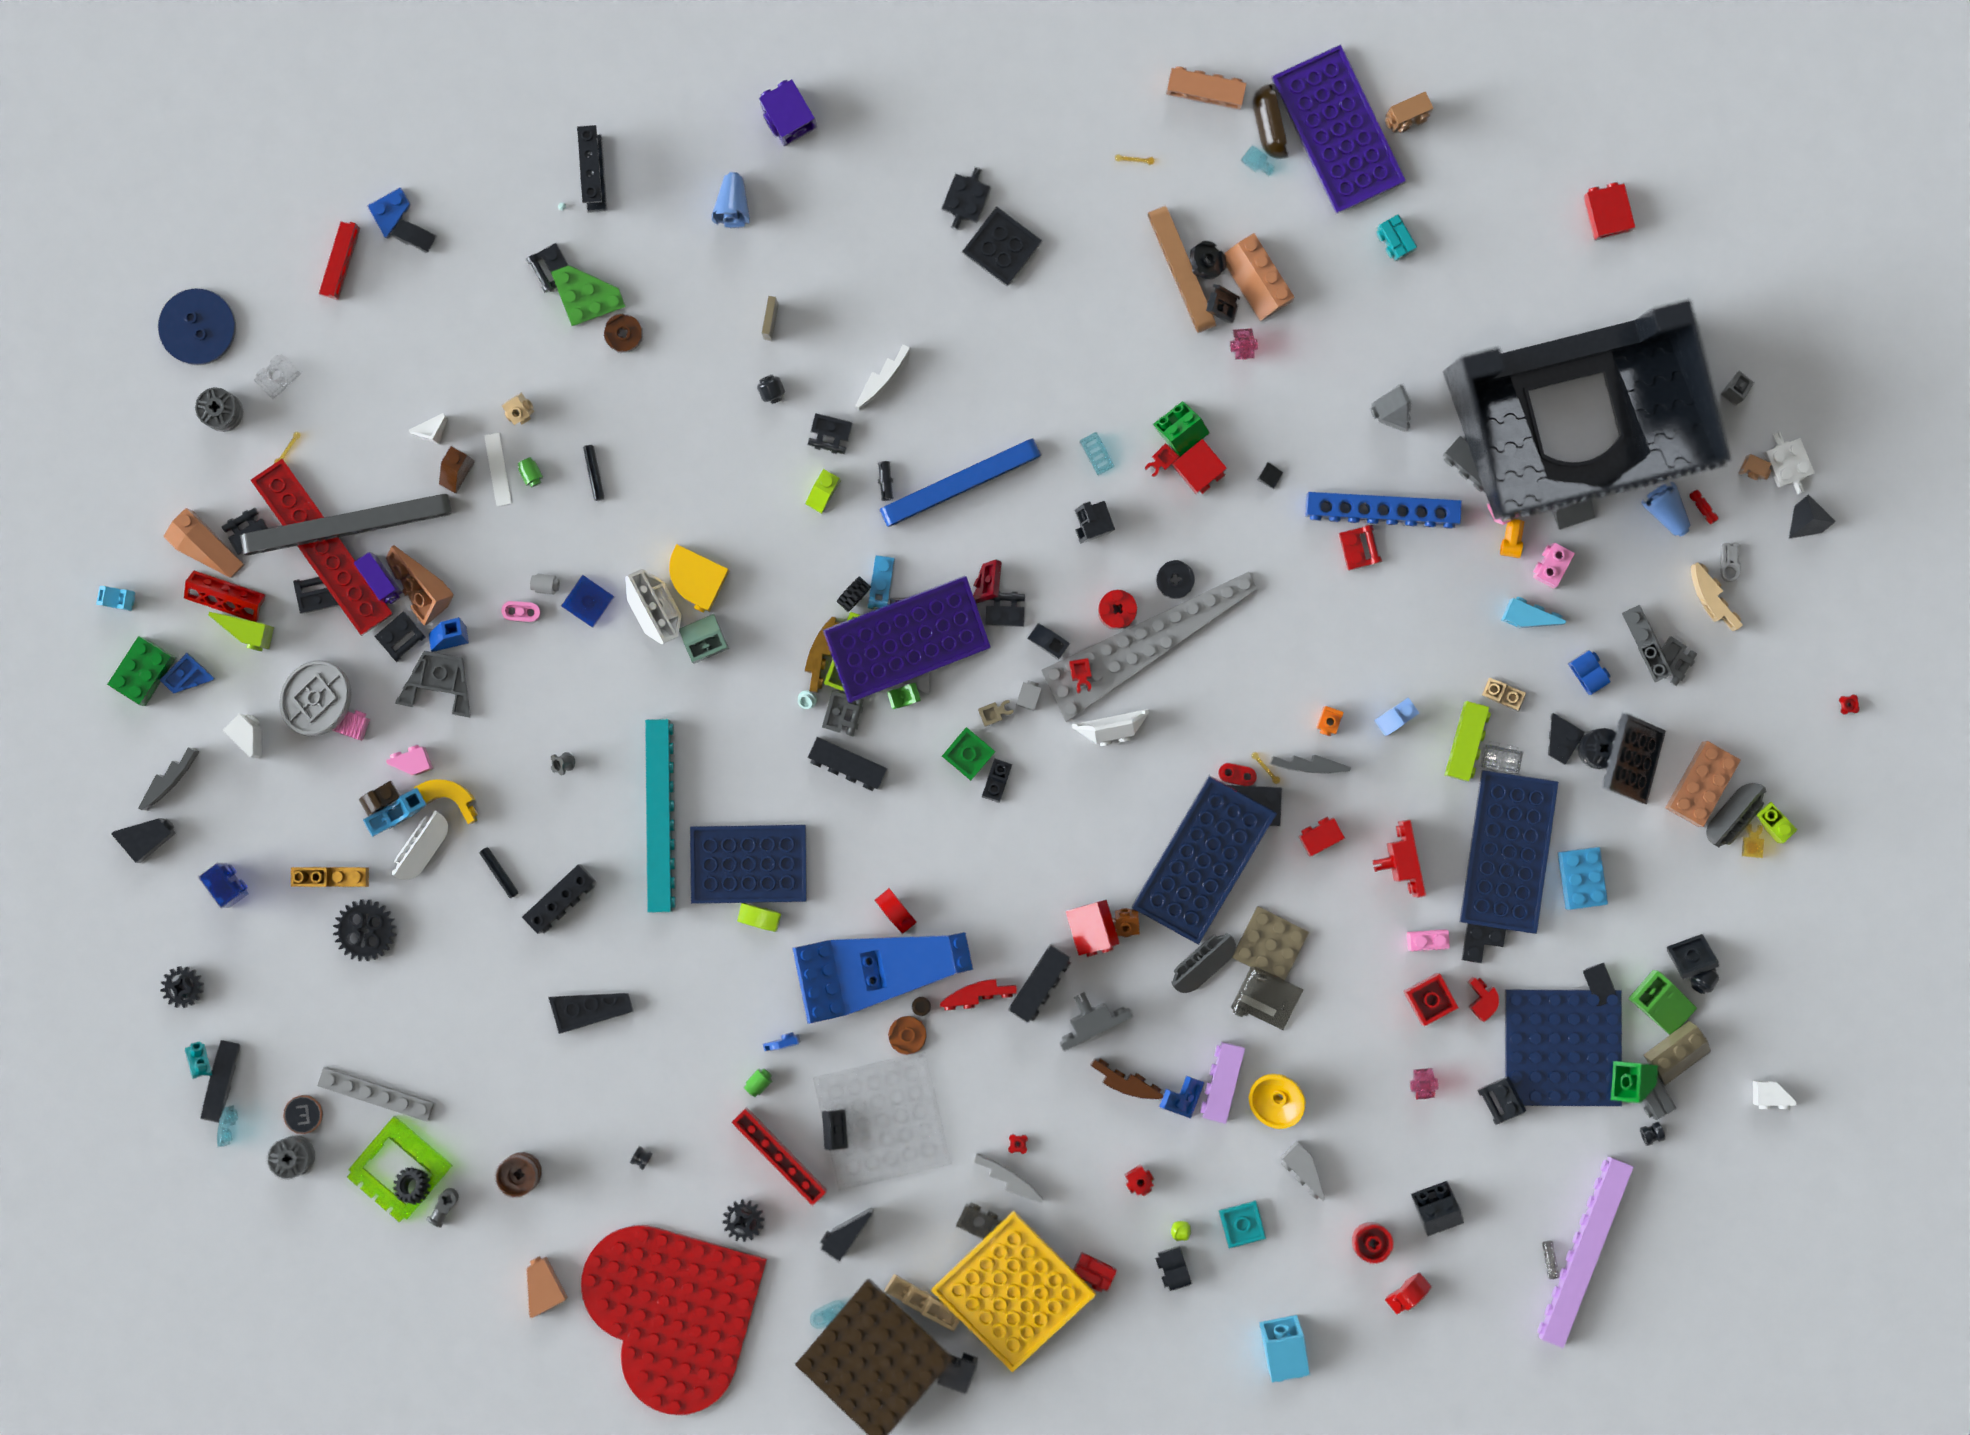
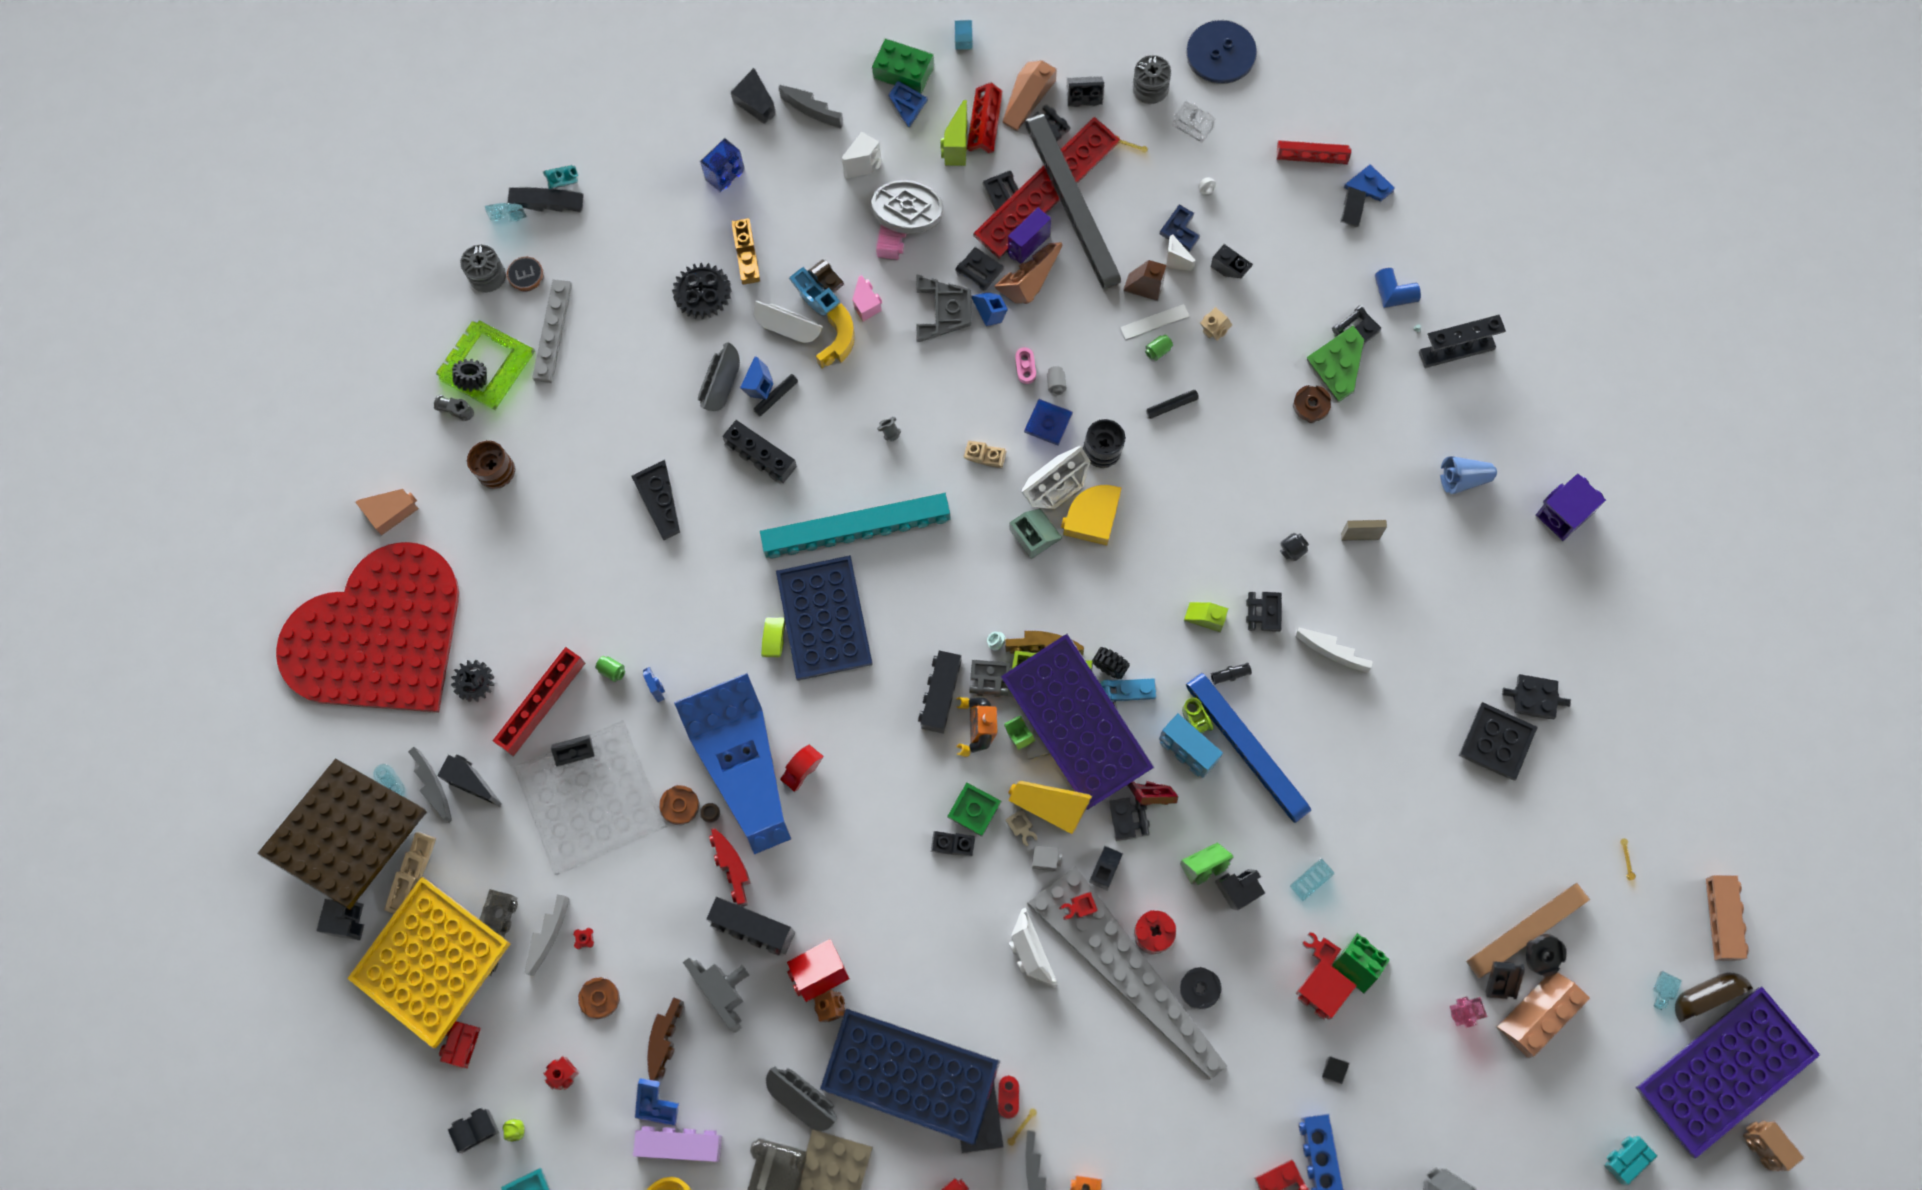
camera: 85 degrees right, 15 degrees down
(180, 994) = (626, 152): black gear -> none
(215, 482) = (1085, 91): none -> black slope
(356, 380) = (1207, 186): none -> white plate
(400, 423) = (1177, 226): none -> dark blue plate
(453, 377) = (1230, 263): none -> black slope
(470, 927) = (719, 378): none -> dark grey brick
(480, 887) = (757, 380): none -> blue slope
(520, 221) = (1391, 293): none -> blue brick
(608, 672) = (983, 454): none -> tan slope
(626, 540) = (1106, 434): none -> black wheel
(641, 1158) = (522, 573): black wheel -> none
(847, 1271) = (433, 789): none -> dark grey slope
(888, 729) = (982, 724): none -> torso
(923, 523) = (1197, 718): none -> lime piece
(951, 537) = (1190, 746): none -> dark azure brick
(978, 680) = (1052, 804): none -> yellow slope
(1064, 548) = (1206, 862): none -> bright green slope
(1075, 1137) = (598, 998): none -> dark orange tile

